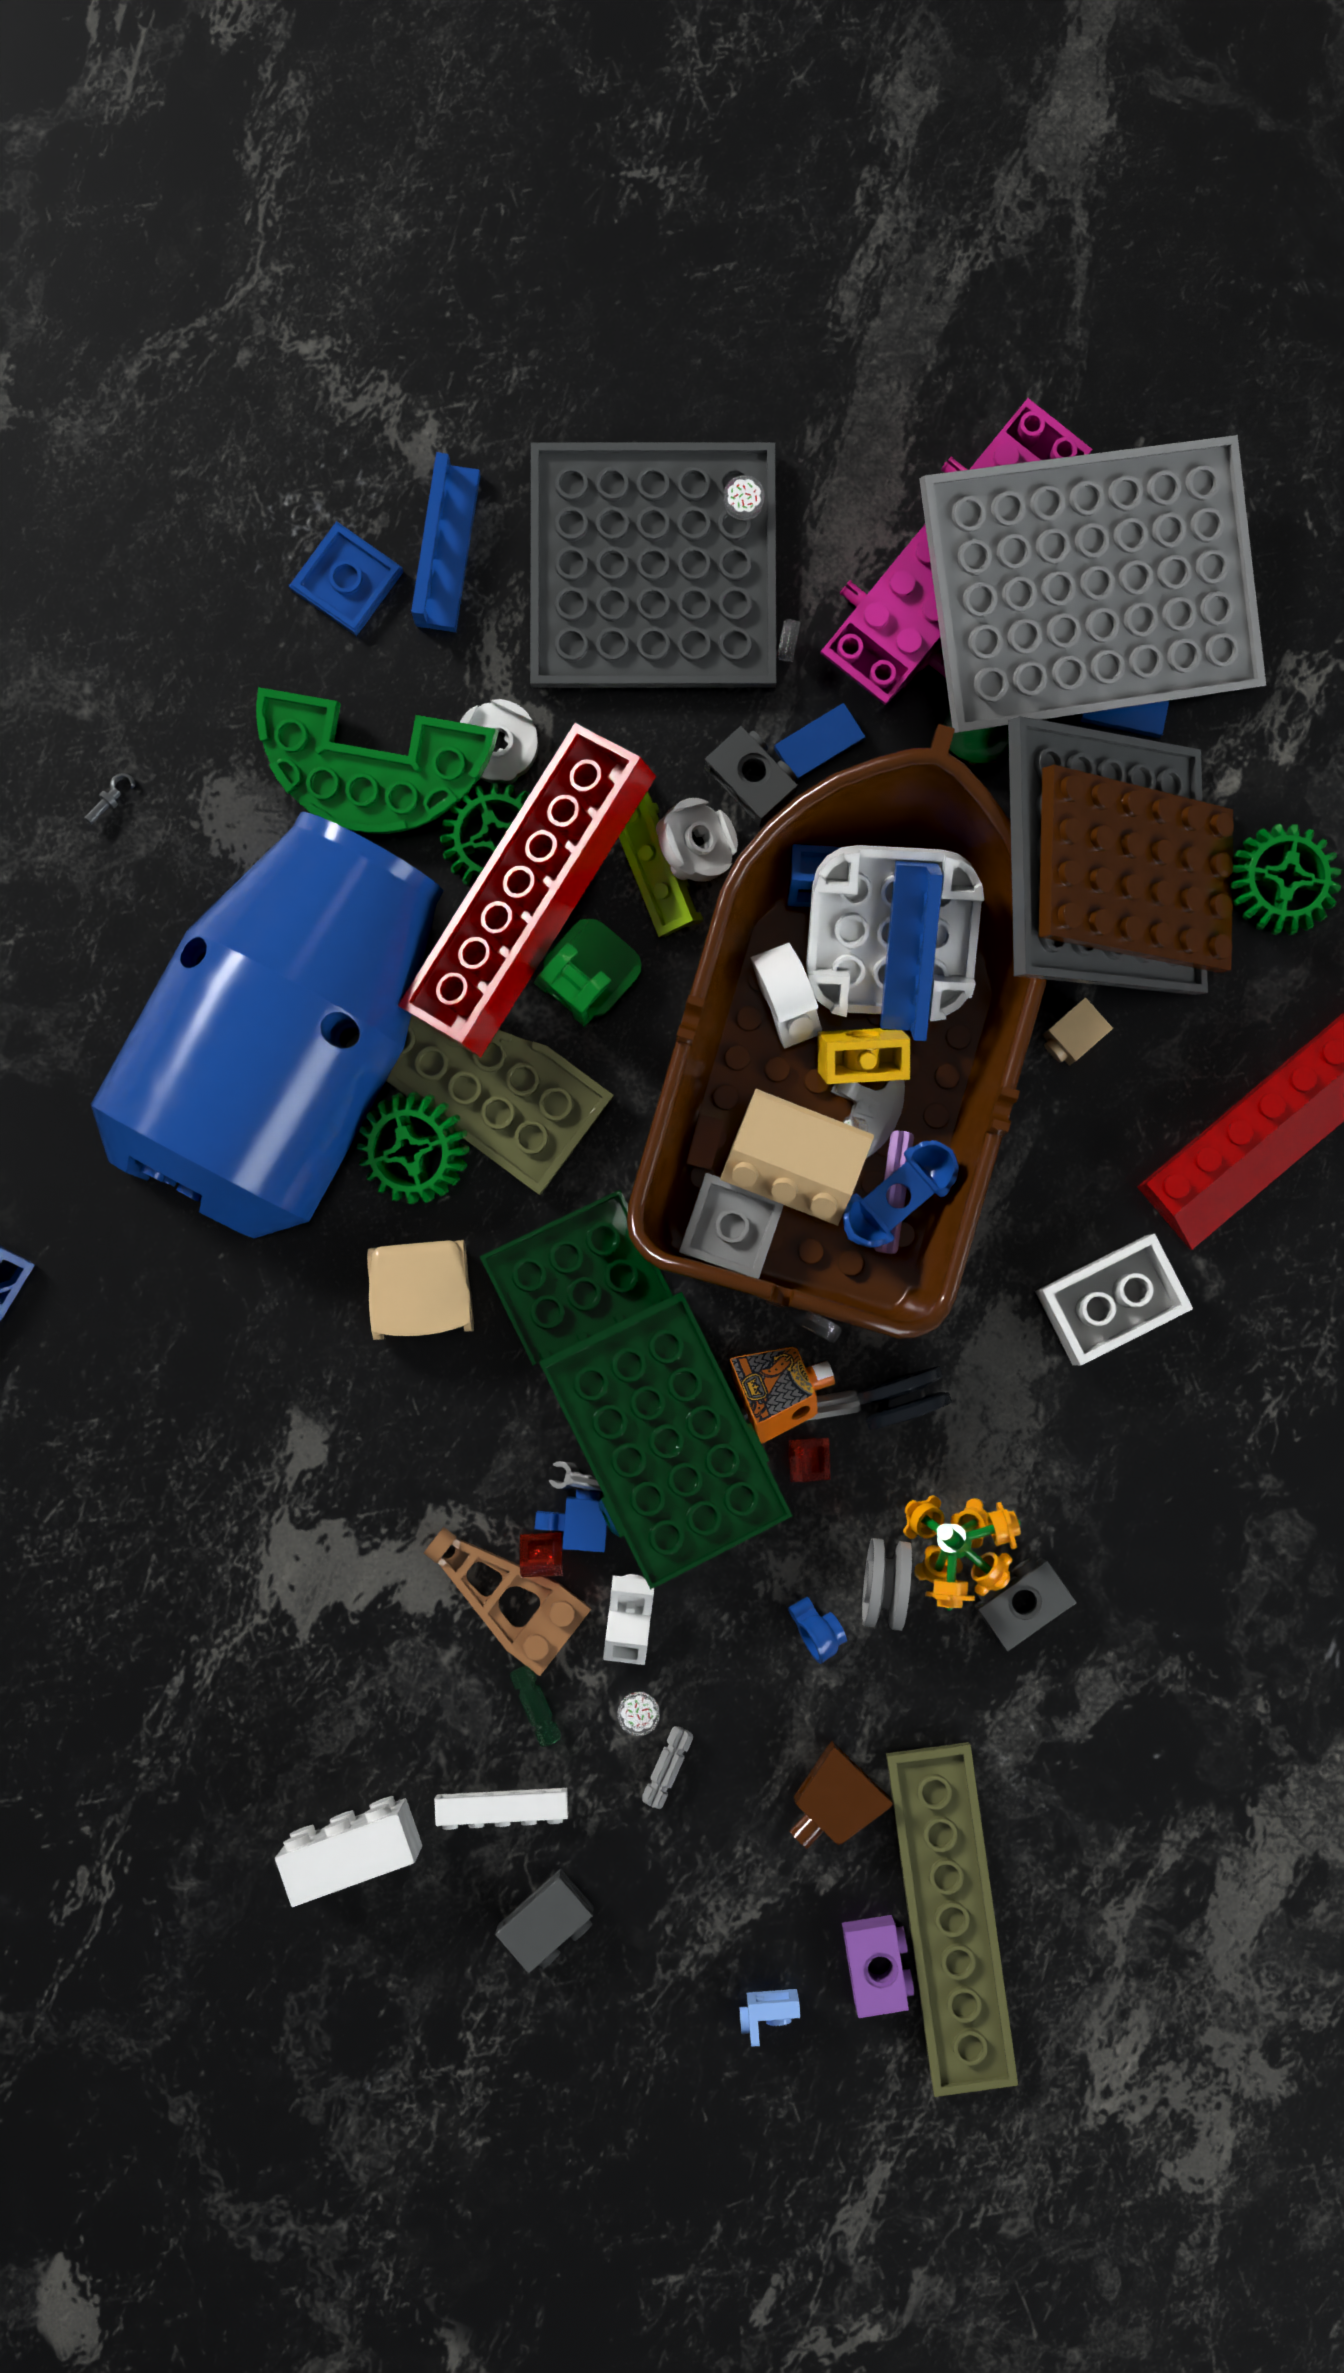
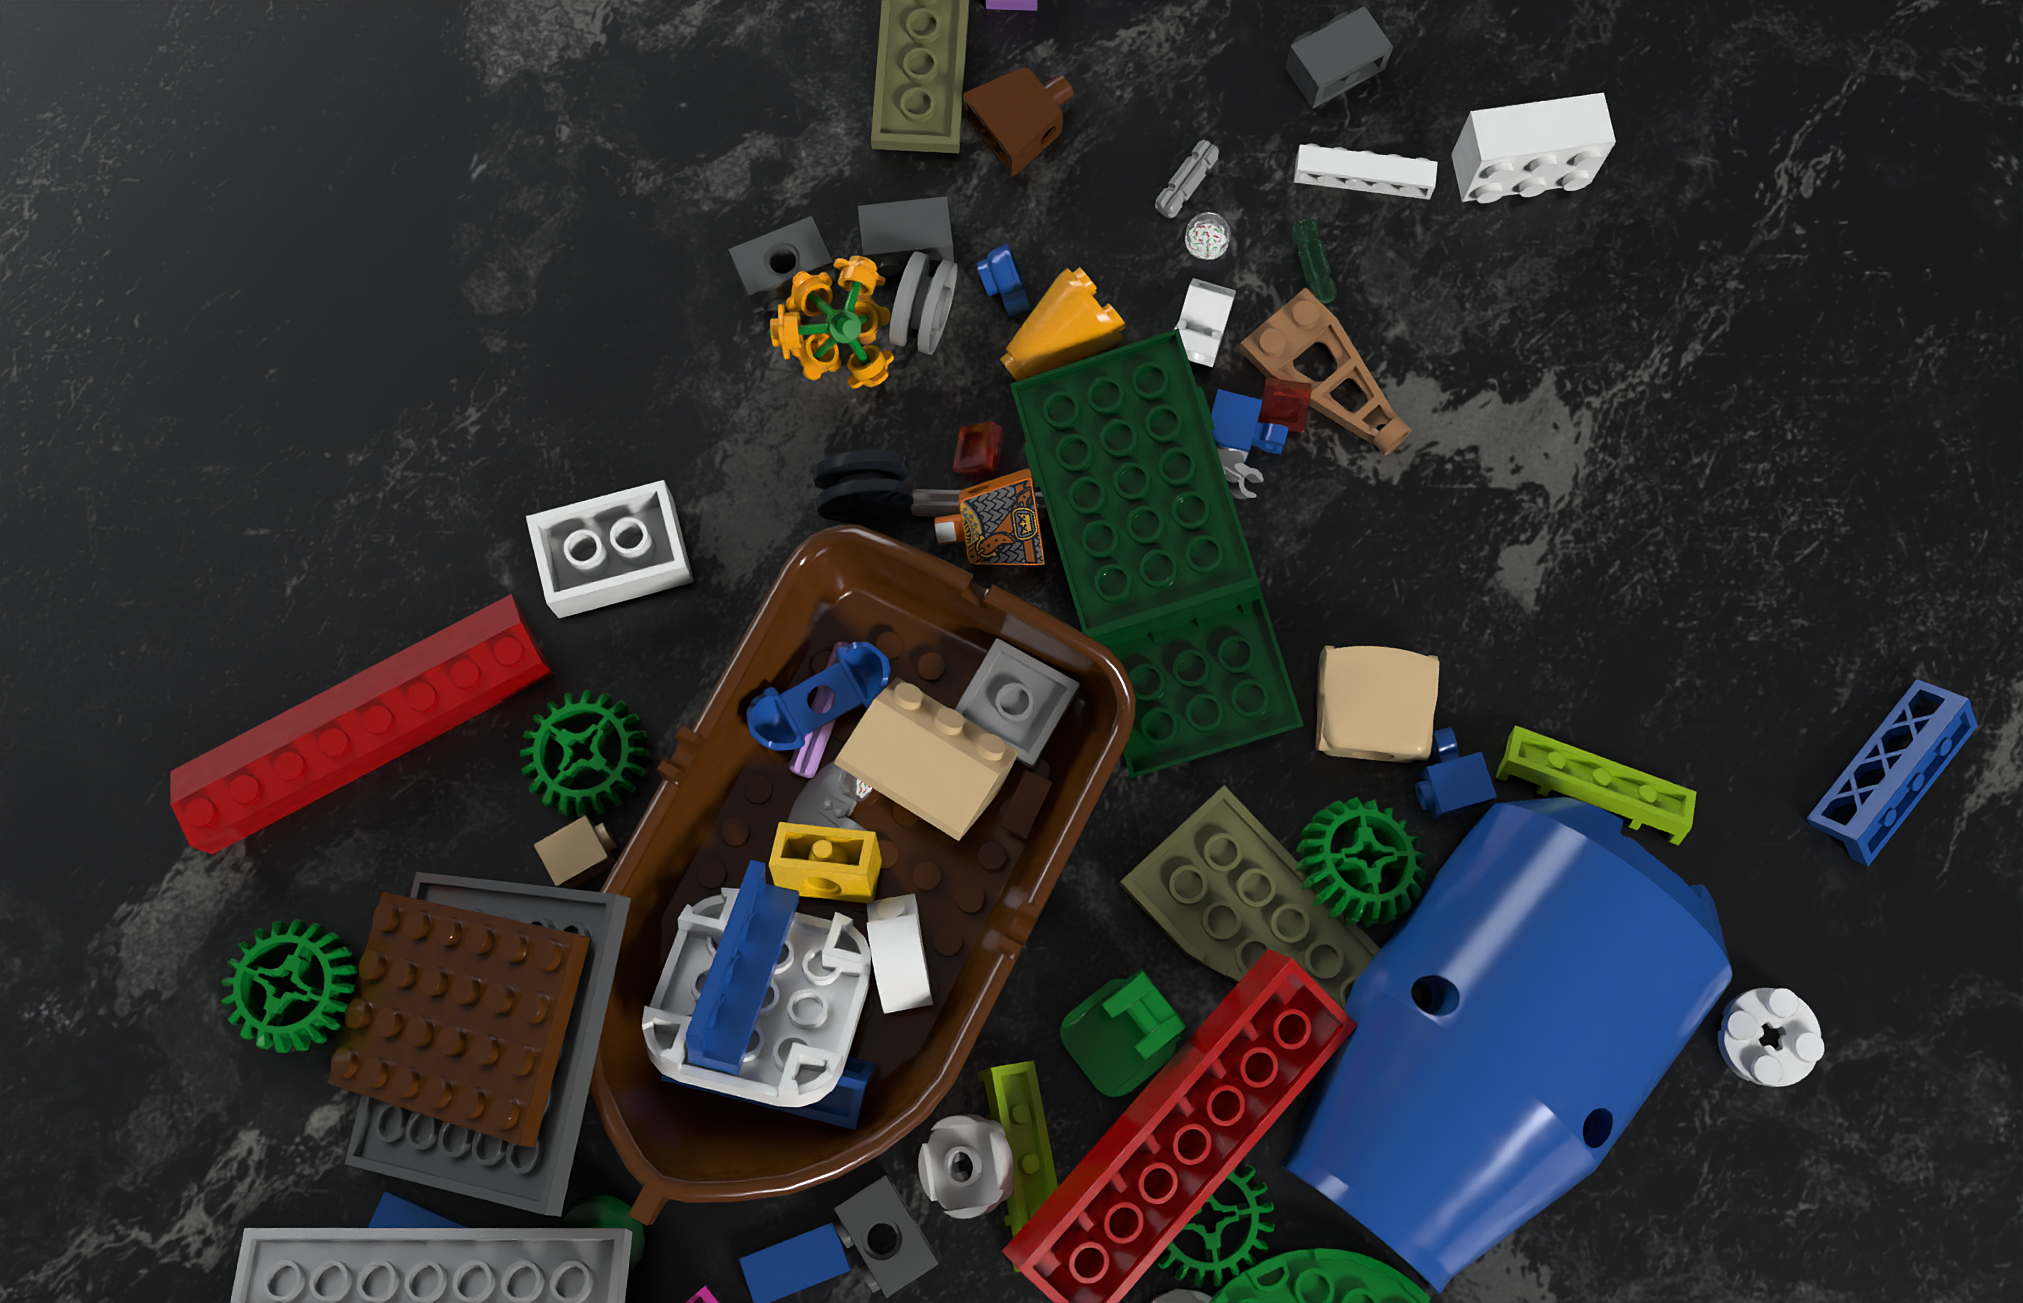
camera: 165 degrees left, 10 degrees down
(26, 1069) = (1797, 1030): none -> white plate
(217, 1260) = (1599, 783): none -> lime hinge
(341, 1235) = (1455, 781): none -> blue brick
(754, 1586) = (1063, 328): none -> light orange cone
(917, 1654) = (900, 228): none -> dark grey brick
(1106, 1125) = (573, 767): none -> green gear

